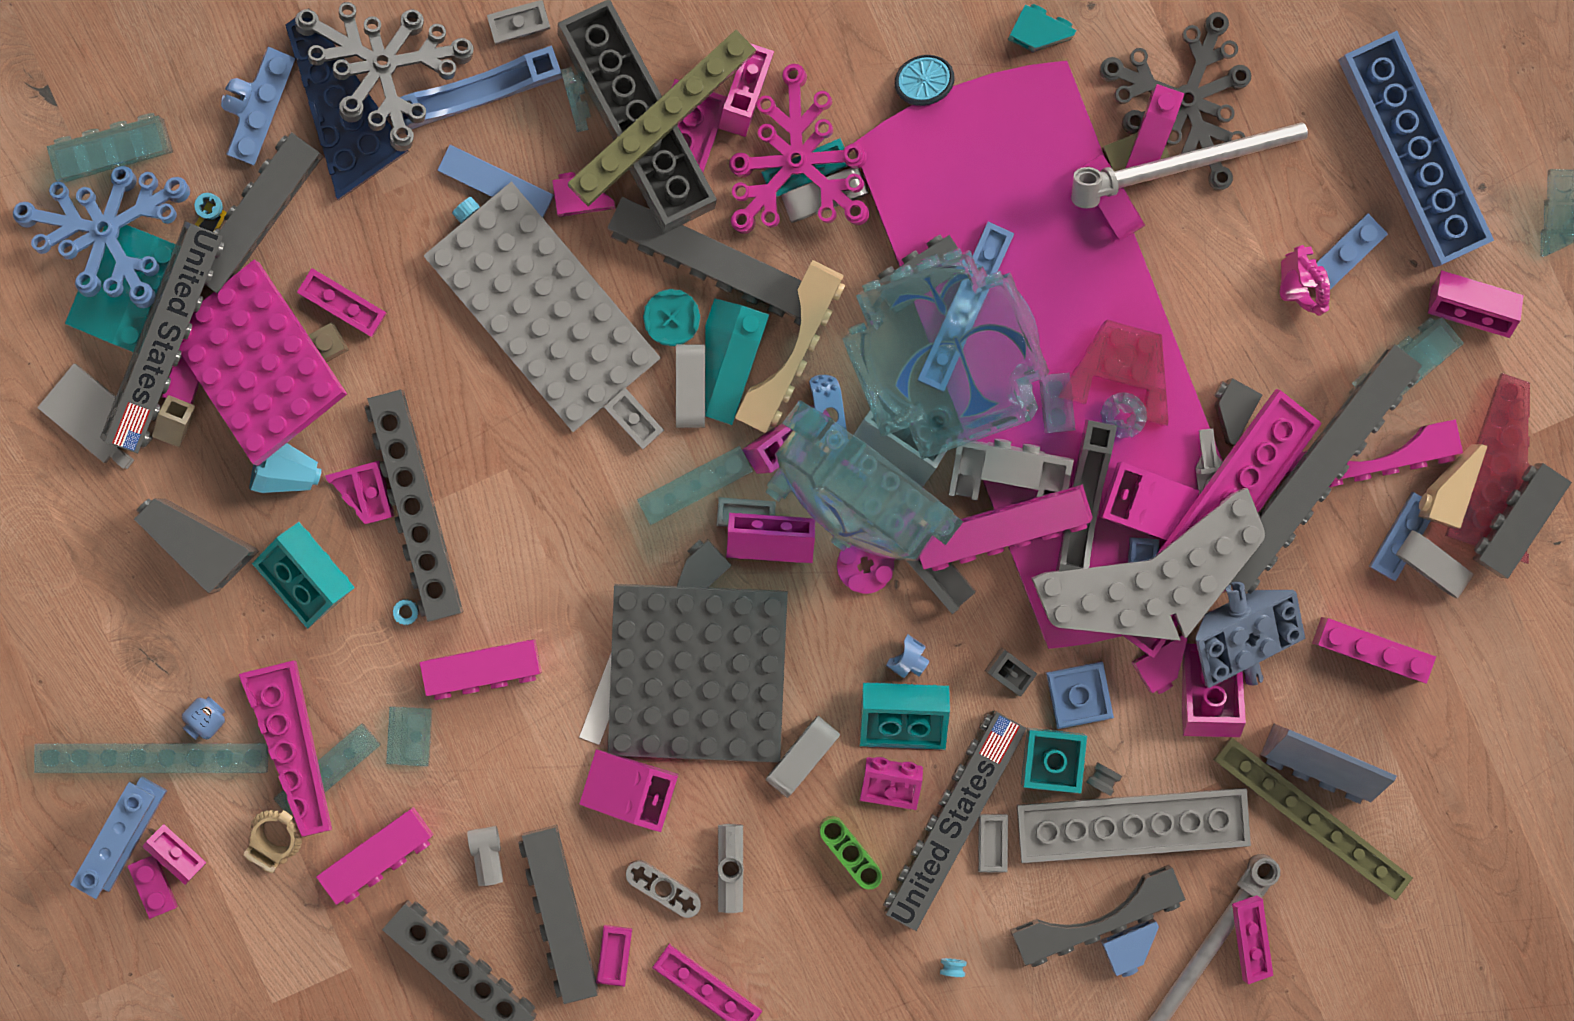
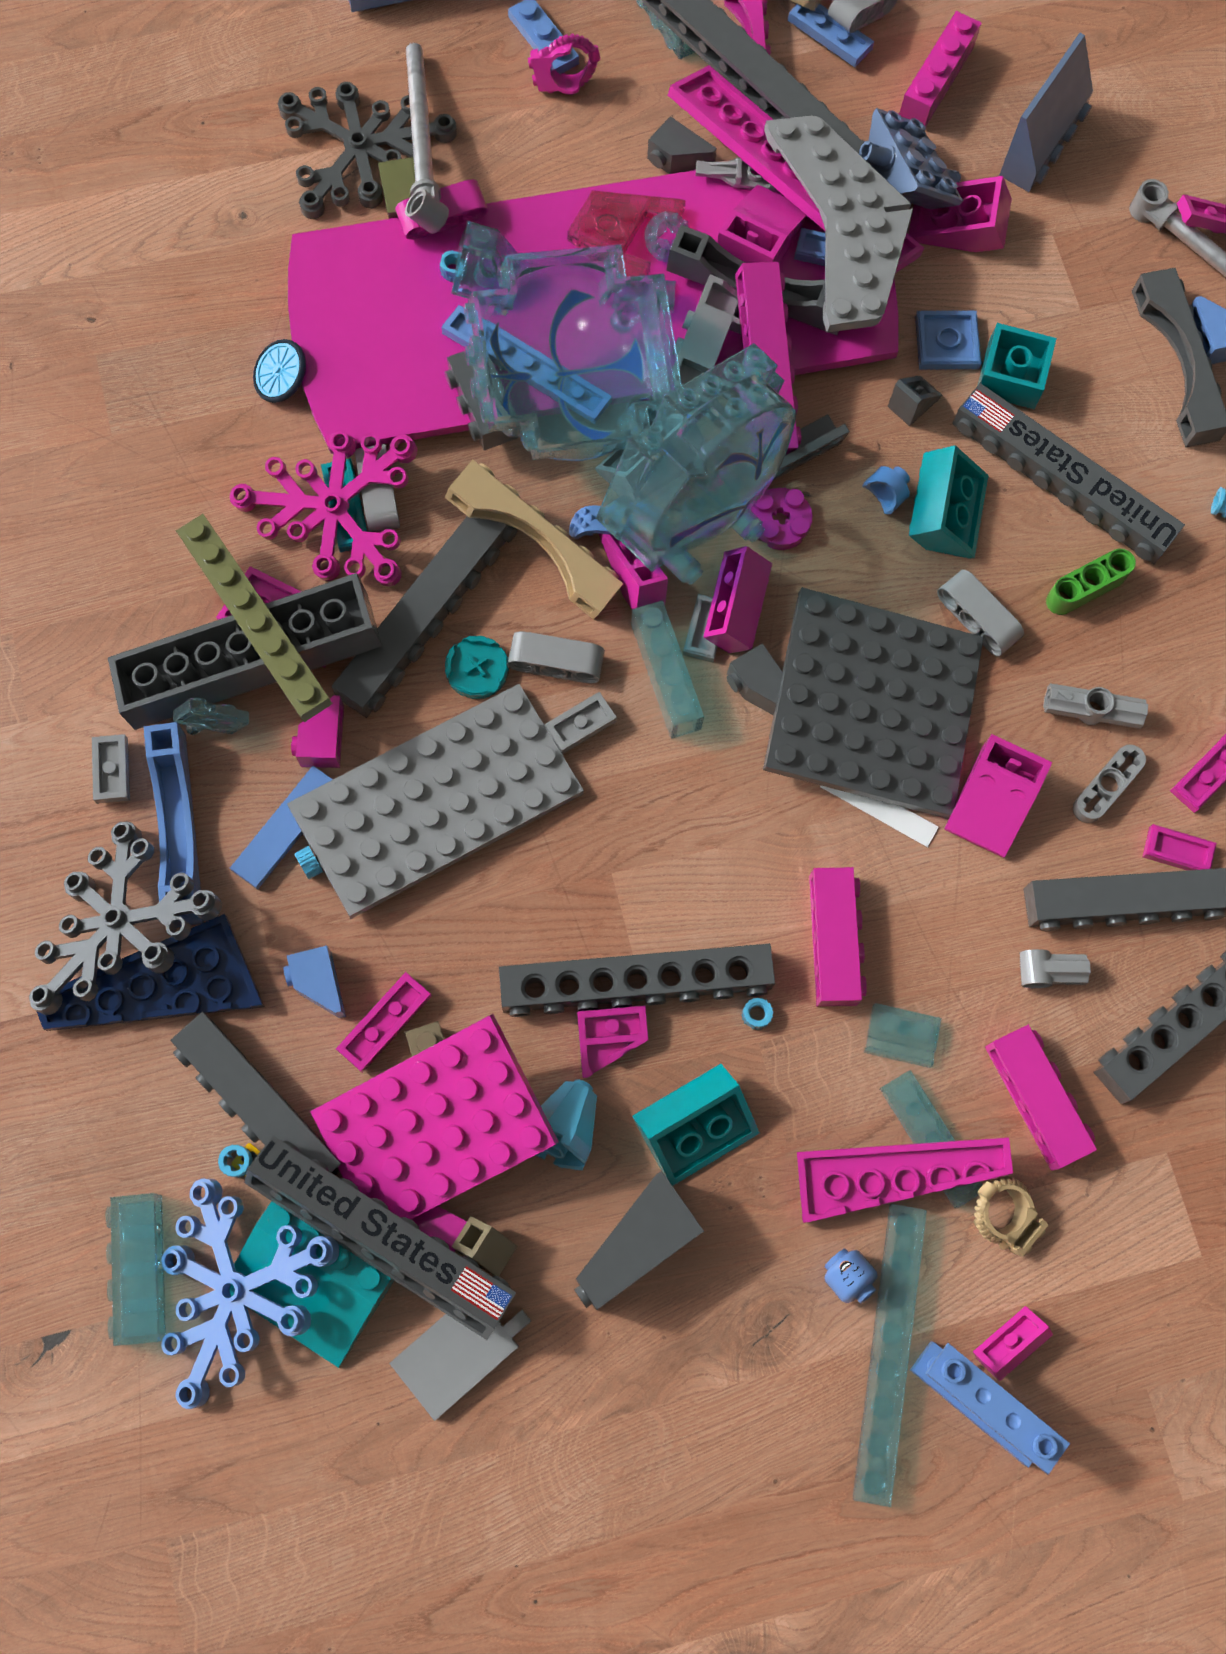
camera: 80 degrees left, 15 degrees down
(152, 886) = (1048, 1379): dark pink plate -> none
(256, 104) = (128, 1082): medium blue plate -> none
(366, 239) = (315, 978): none -> medium blue slope
(730, 350) = (515, 601): teal wedge -> none
(745, 92) = (254, 546): dark pink slope -> none
(891, 783) = (1019, 528): dark pink bracket -> none
(993, 843) = (1097, 445): light grey tile -> none
(1039, 31) = (253, 259): teal slope -> none
(1048, 221) = (448, 258): none -> medium azure axle
(1053, 251) = (478, 259): none -> clear light blue slope
(1104, 779) = (1040, 323): dark grey wheel -> none
(1133, 825) = (1090, 312): light grey plate -> none
(1155, 125) = (375, 154): dark pink slope -> none
(1164, 668) = (937, 260): dark pink slope -> none
(1313, 818) = (1099, 152): olive plate -> none

